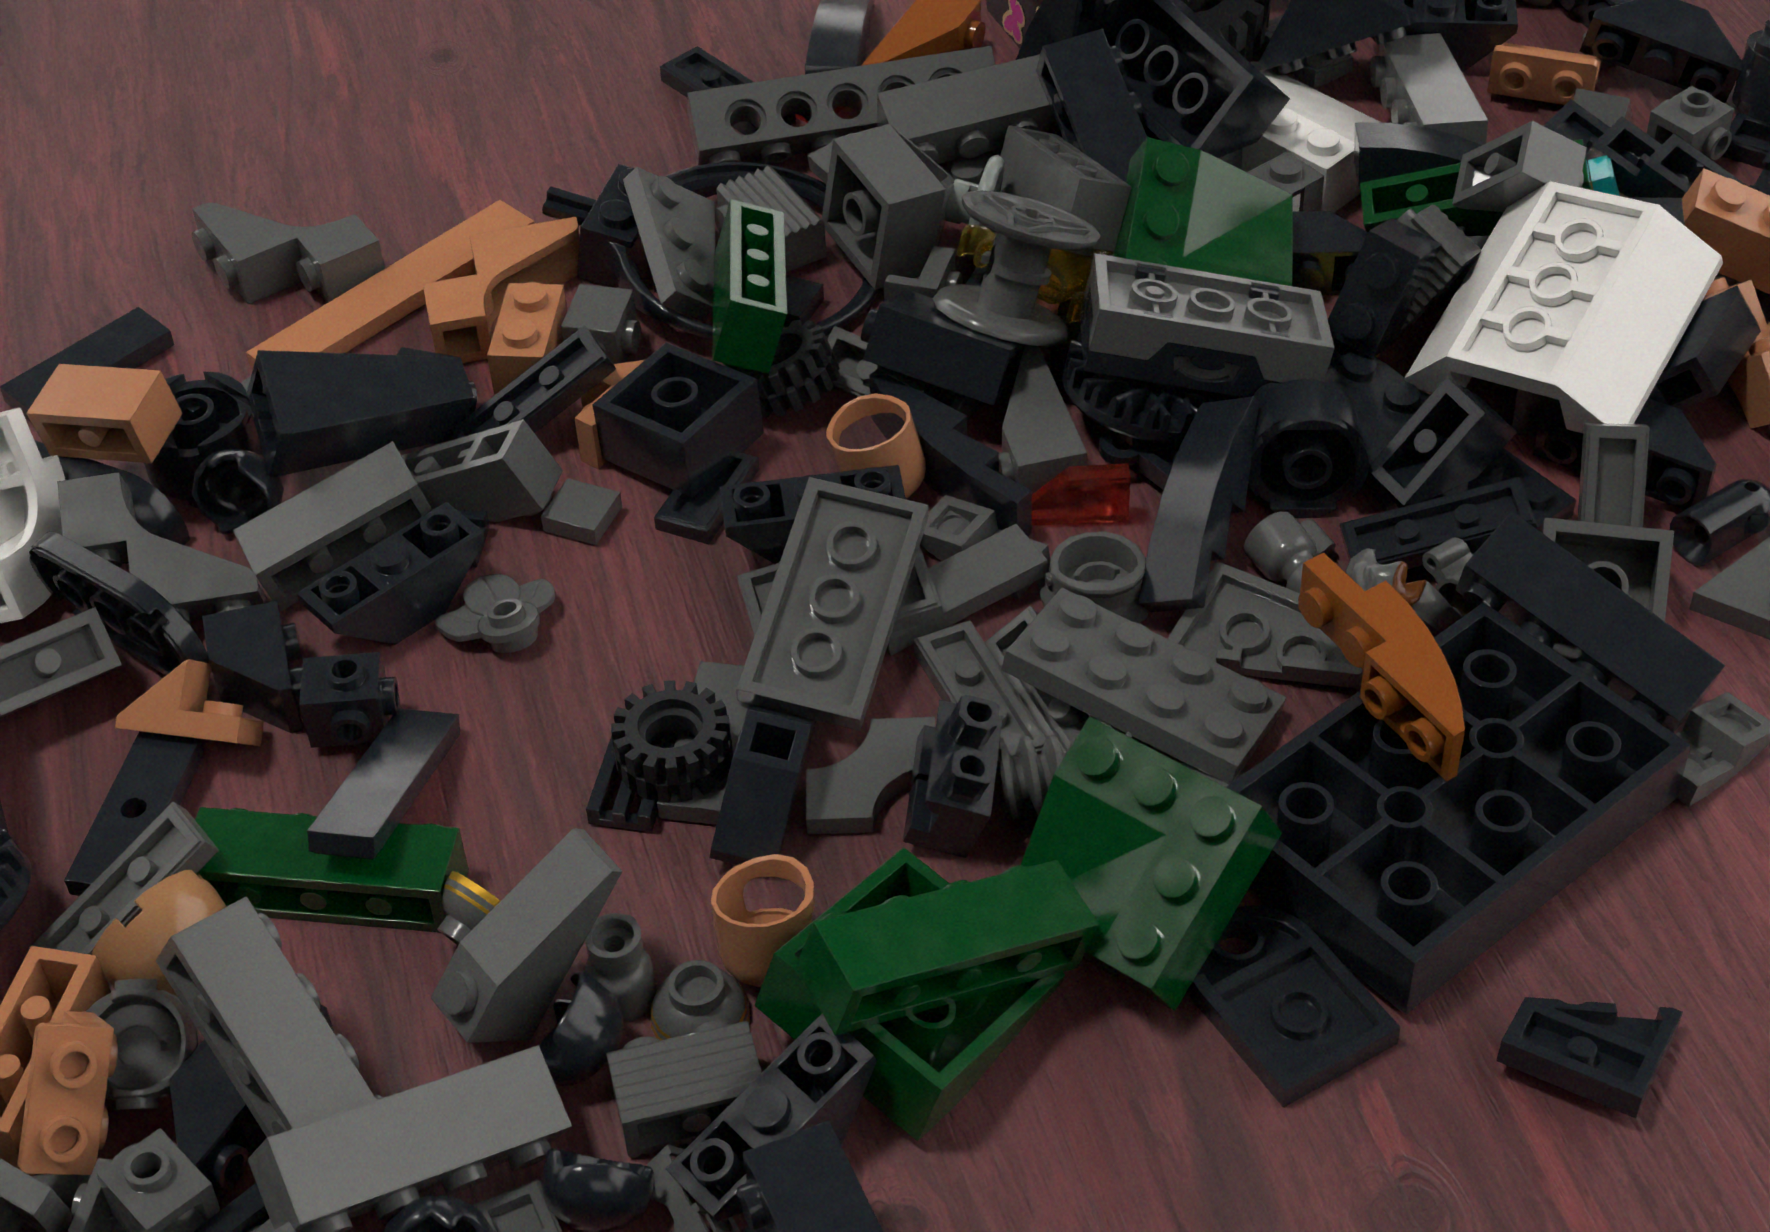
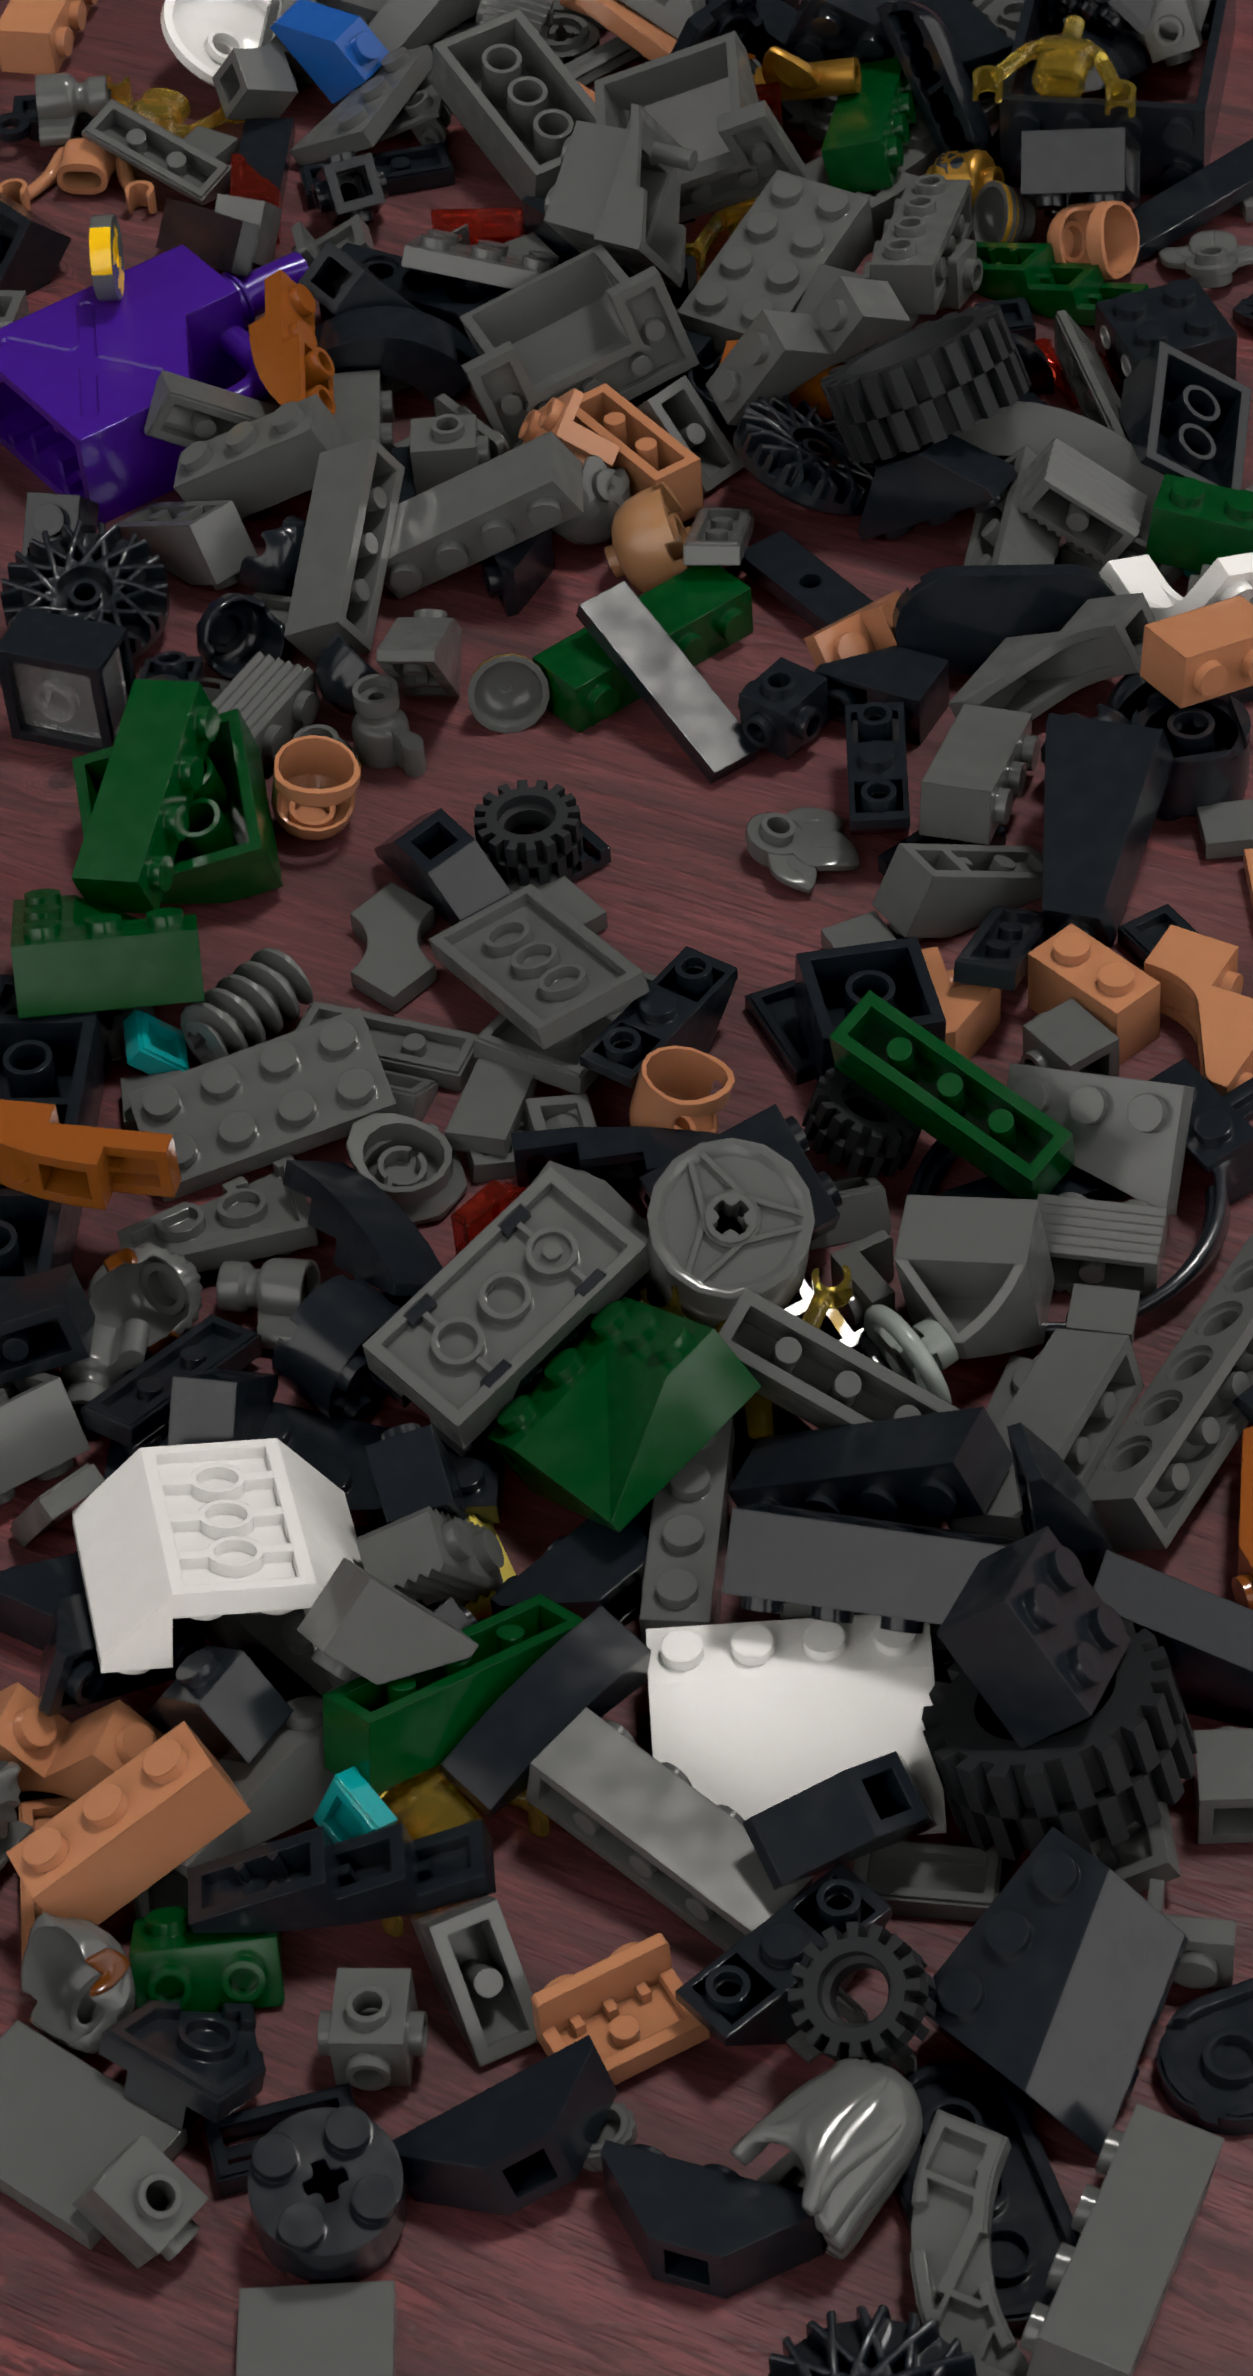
camera: 135 degrees right, 0 degrees up
(954, 776) = (309, 934): black hips -> none

